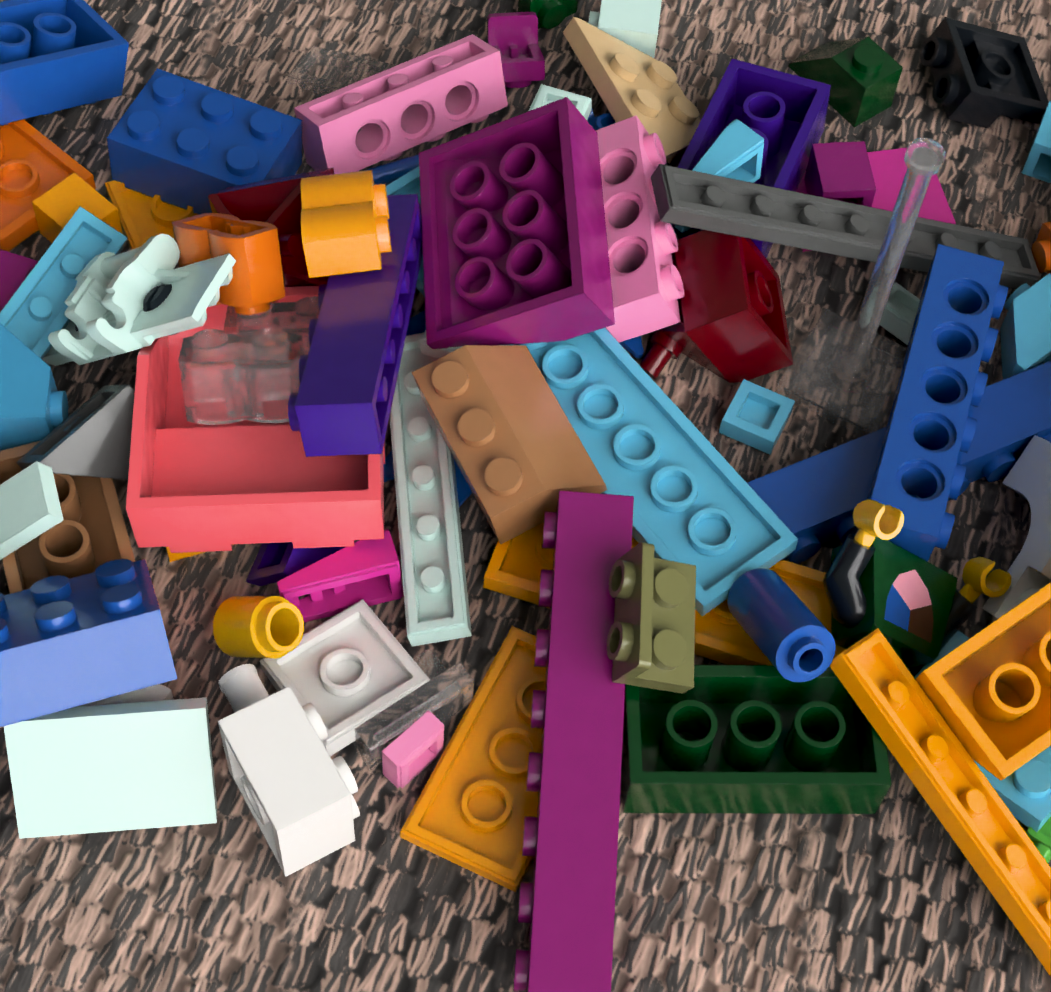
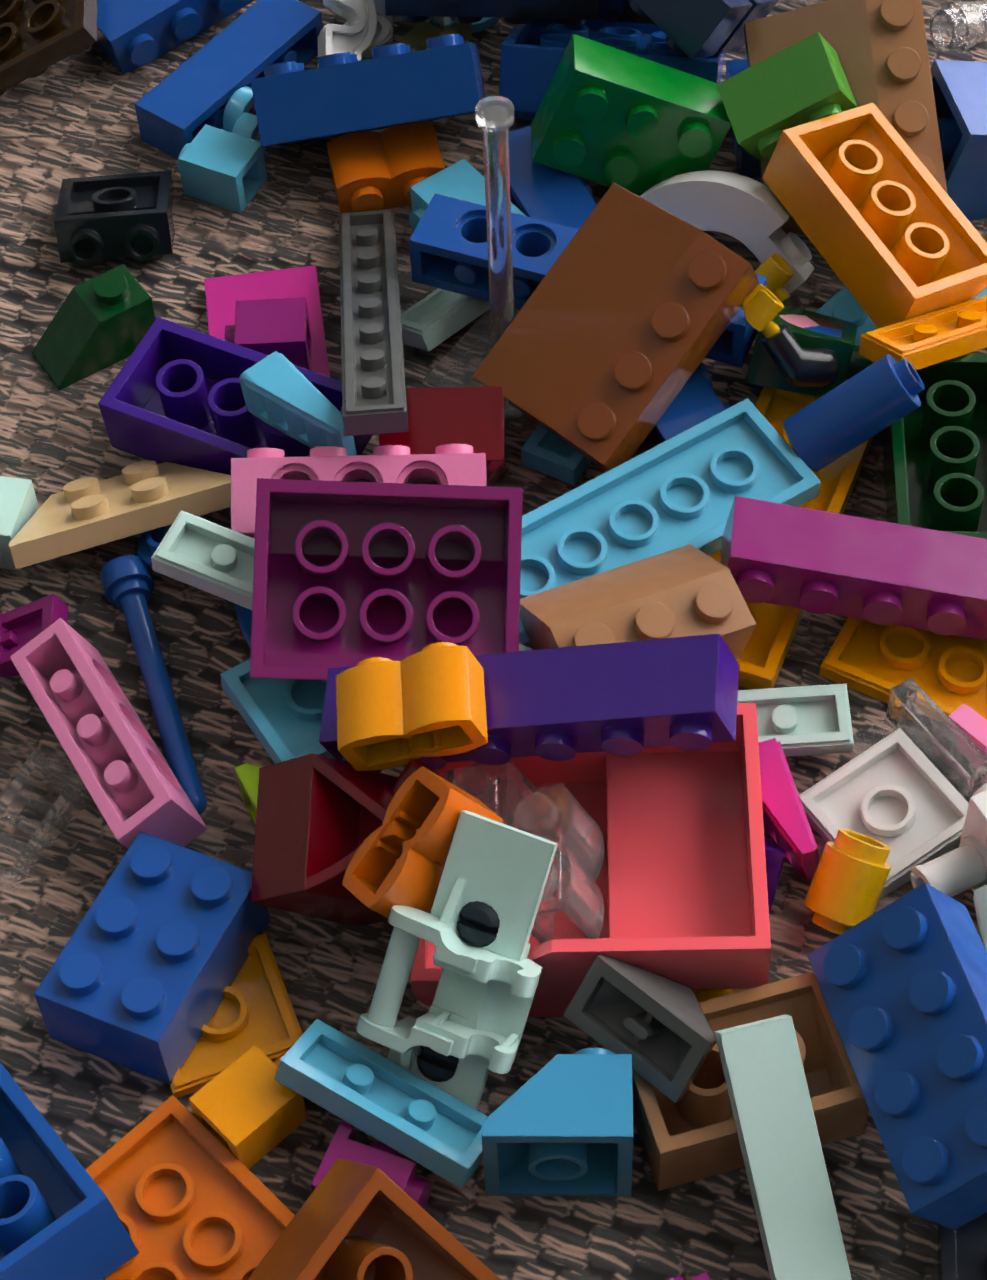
camera: 80 degrees left, 5 degrees down
(652, 621) = (875, 495): olive bracket -> none
(847, 413) = (618, 326): none -> dark orange slope

